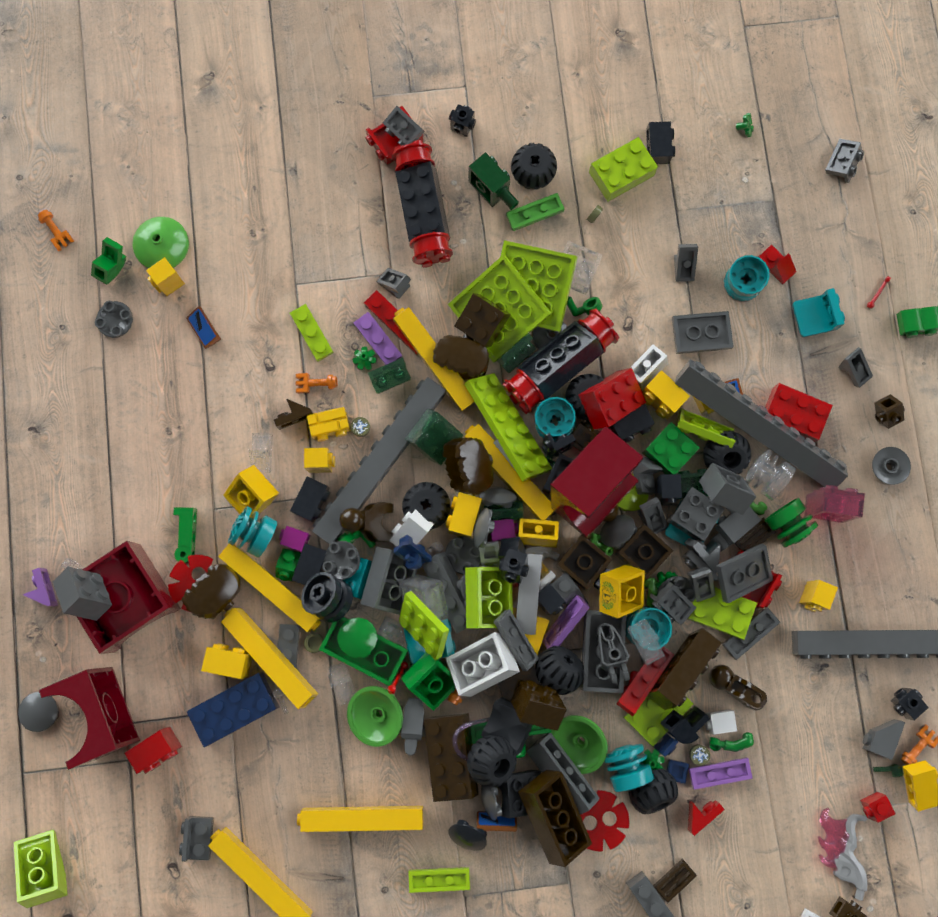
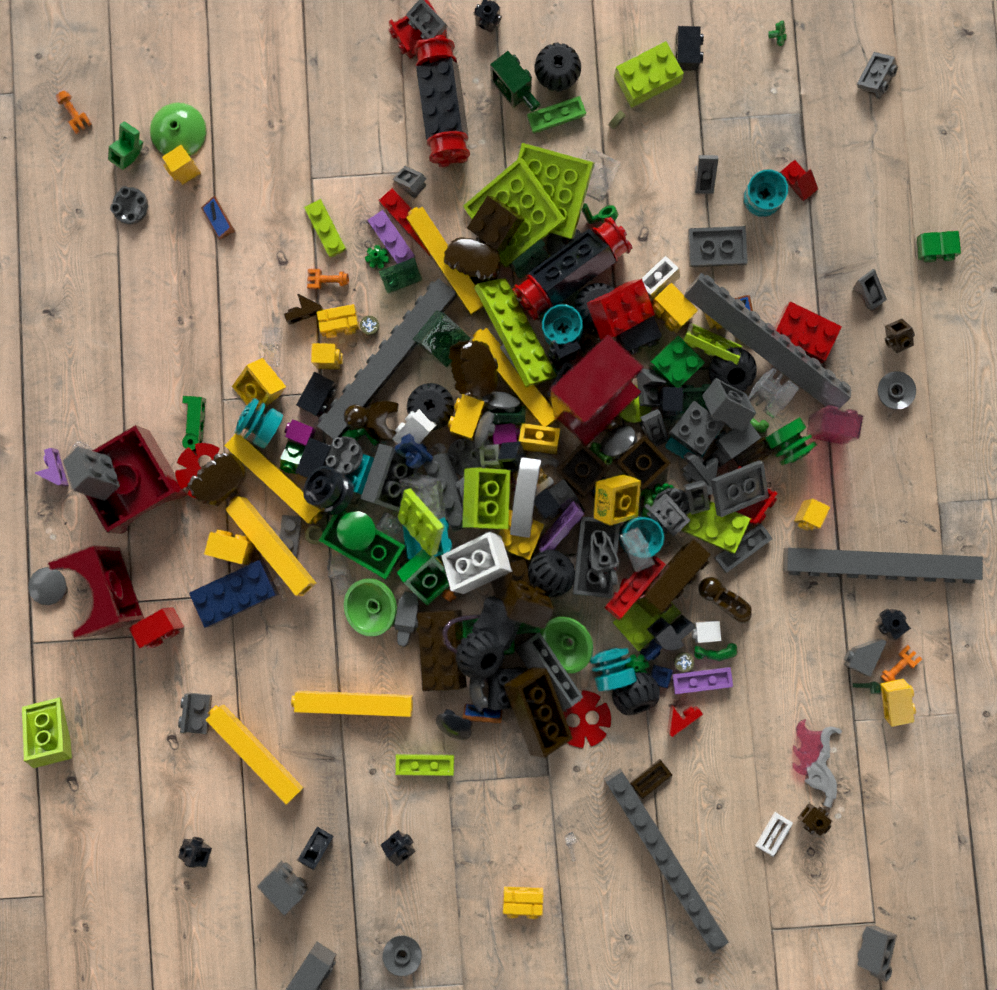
camera: 15 degrees right, 5 degrees up
(392, 688) = (387, 581): red hinge -> none
(514, 566) = (511, 469): black brick -> none
(516, 640) = (510, 541): dark grey tile -> none
(819, 314) = (836, 233): teal bracket -> none
(870, 305) = (891, 226): red hinge -> none
(877, 807) = (852, 720): red brick -> none

